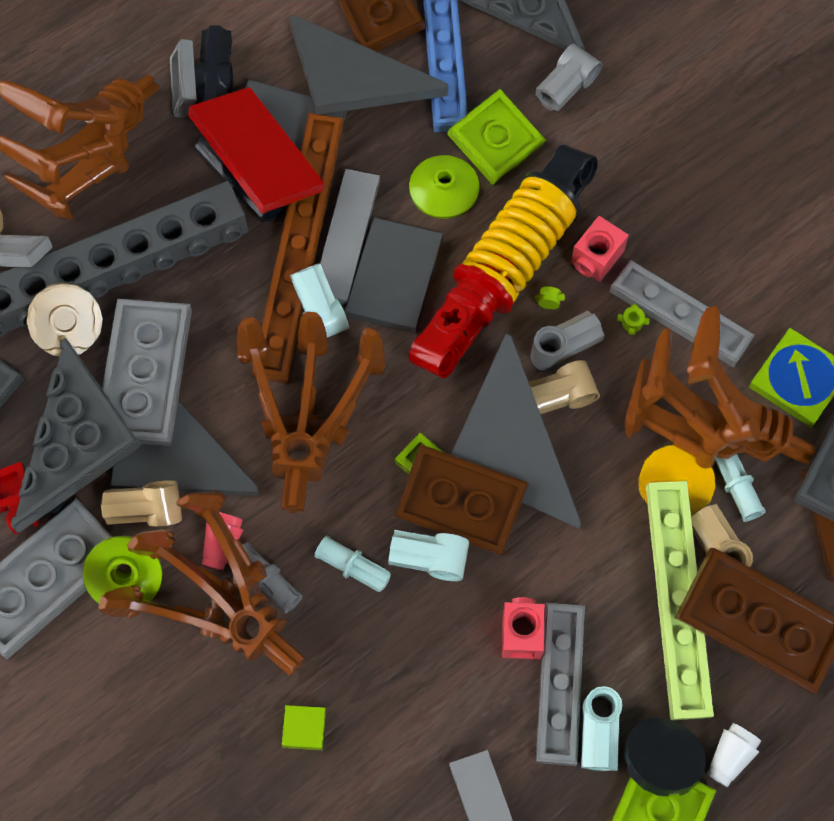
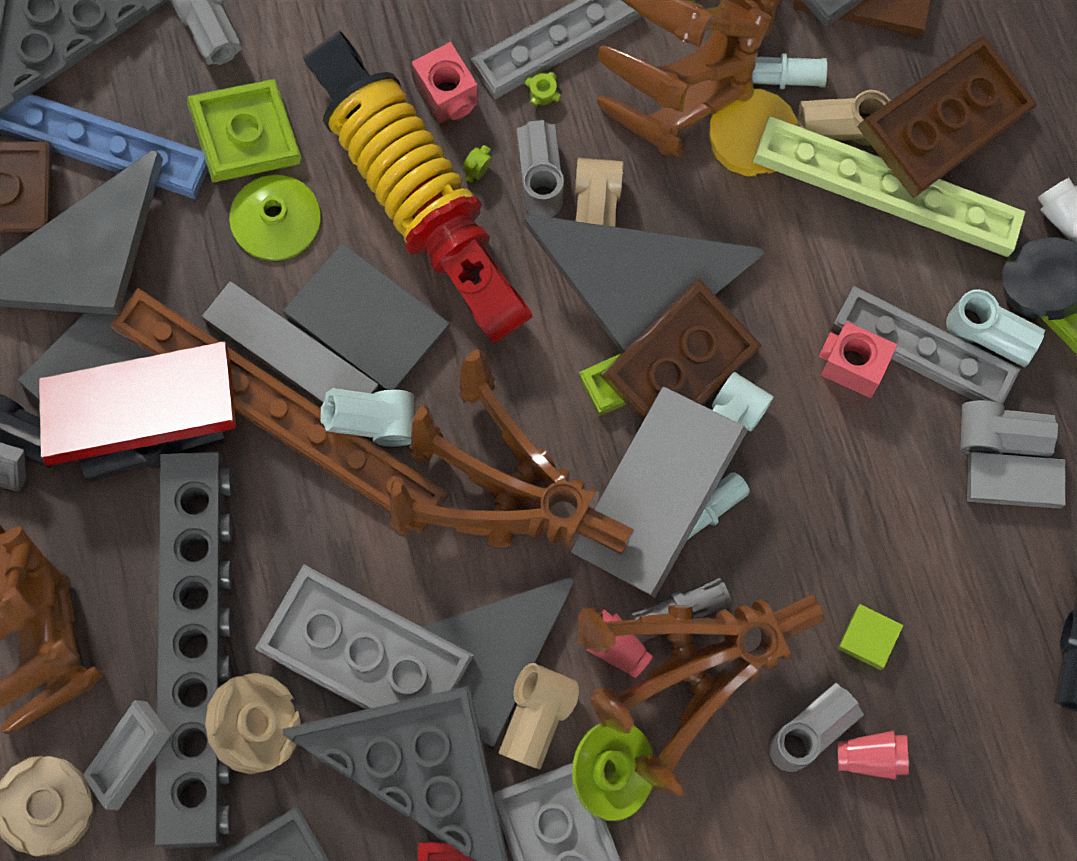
camera: 70 degrees left, 5 degrees up
(209, 765) = (875, 755): none -> coral cone
(214, 711) = (817, 727): none -> light grey piece
(350, 522) = (663, 488): none -> light grey tile
(514, 762) = (998, 431): none -> light grey piece

